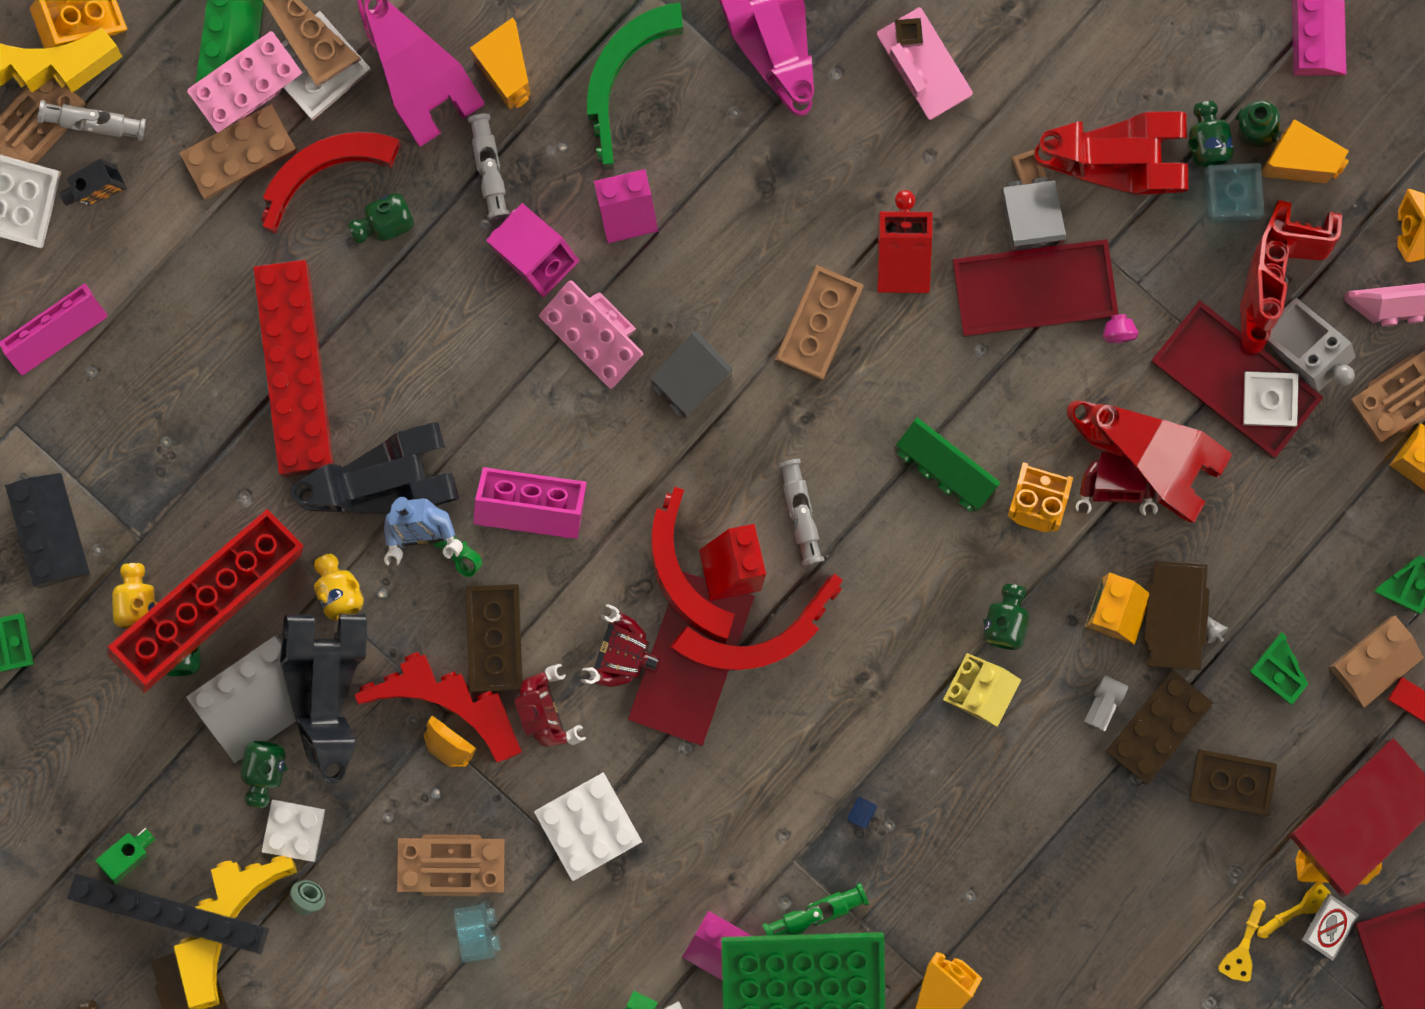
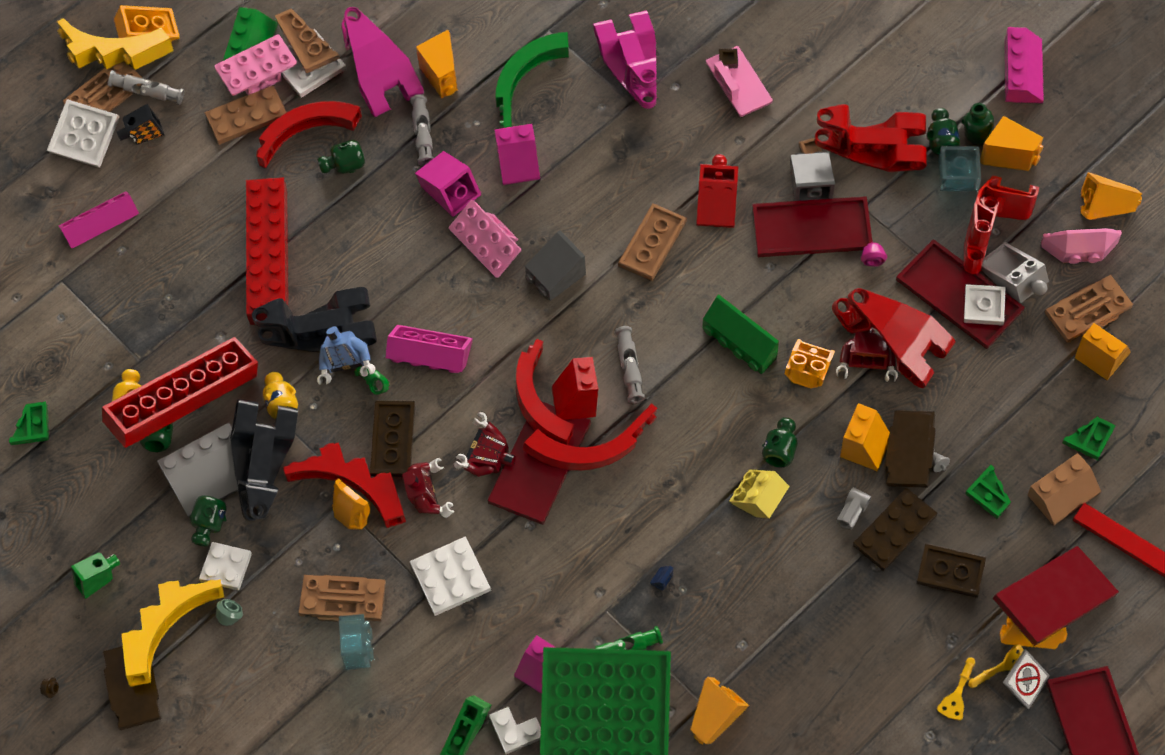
camera: 10 degrees right, 20 degrees down
(47, 529) = (73, 348): black slope -> none
(168, 913) = (121, 612): black plate -> none

